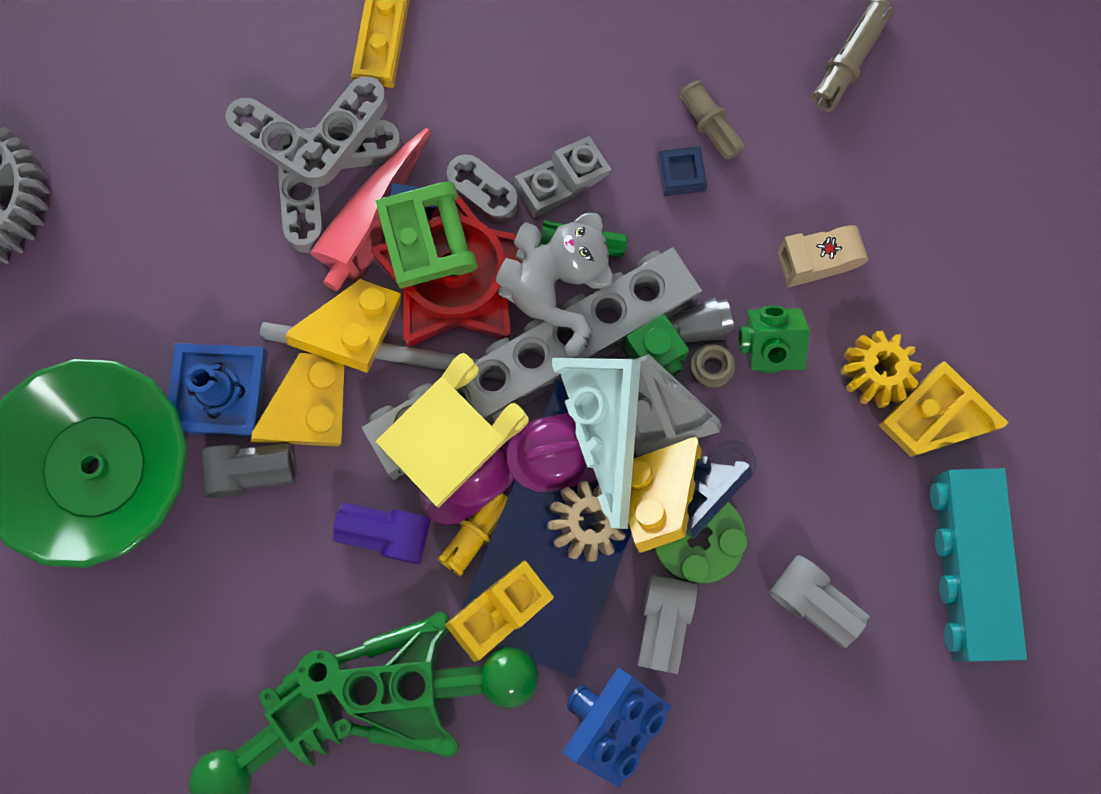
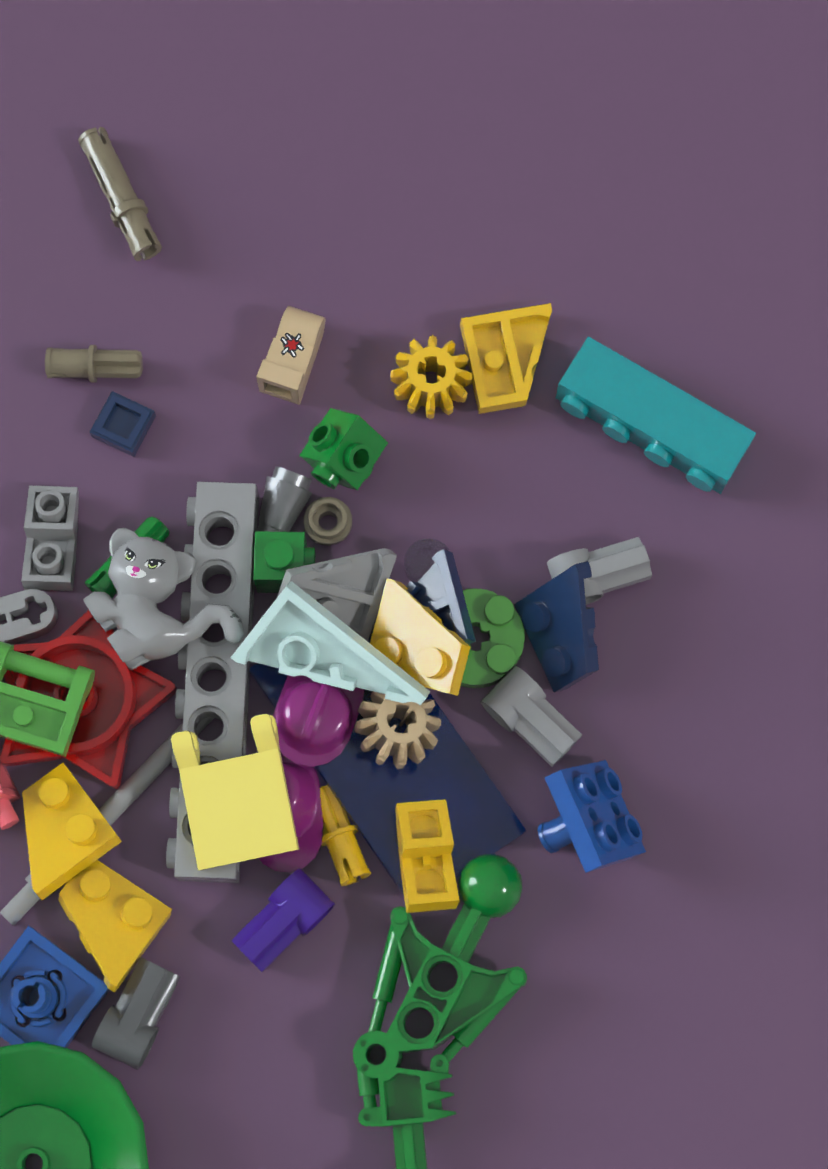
camera: 60 degrees left, 0 degrees up
(753, 601) = (562, 627): none -> dark blue wing

